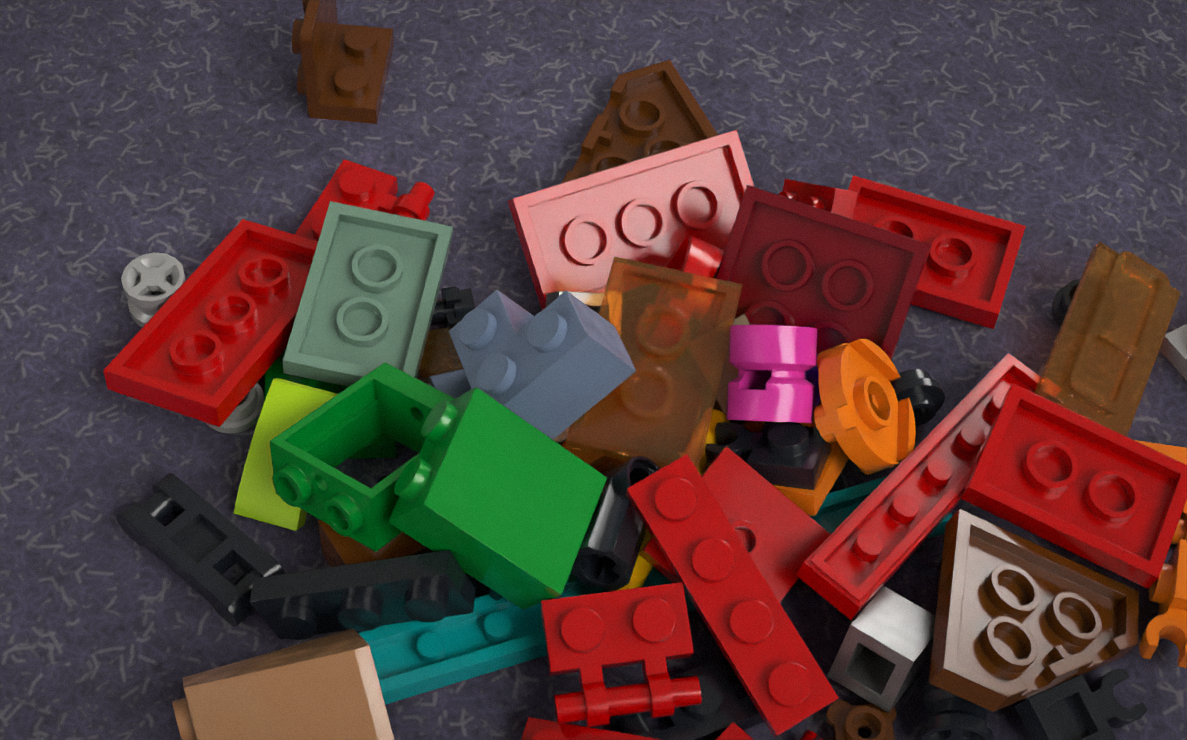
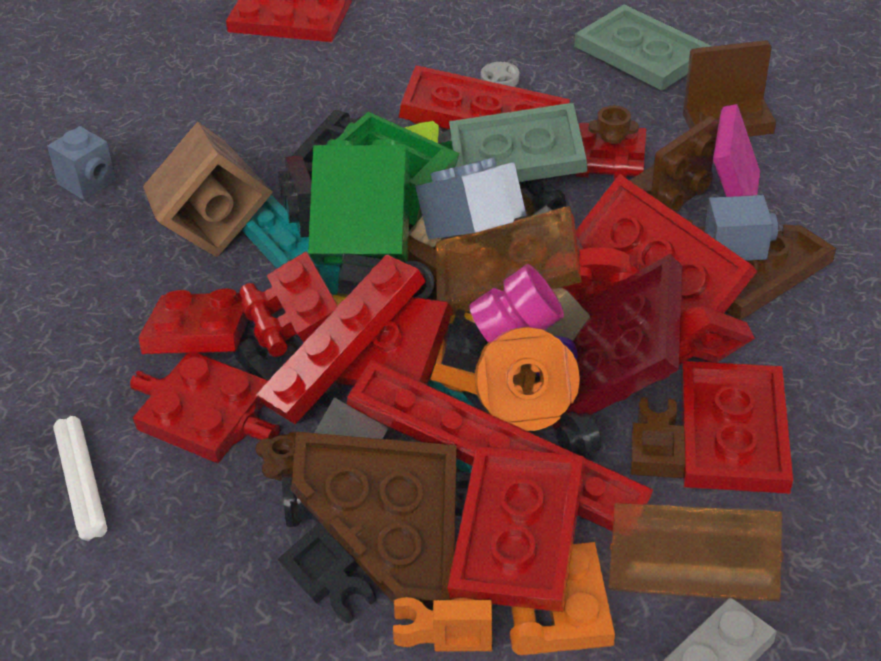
camera: 80 degrees right, 10 degrees down
(147, 105) = (639, 46): none -> sand green plate
(356, 181) = (613, 124): none -> reddish brown plate
(478, 165) = (682, 166): none -> reddish brown bracket
(504, 86) = (735, 155): none -> dark pink tile
(632, 121) = (742, 225): none -> sand blue brick
(942, 331) = (657, 442): none -> reddish brown plate

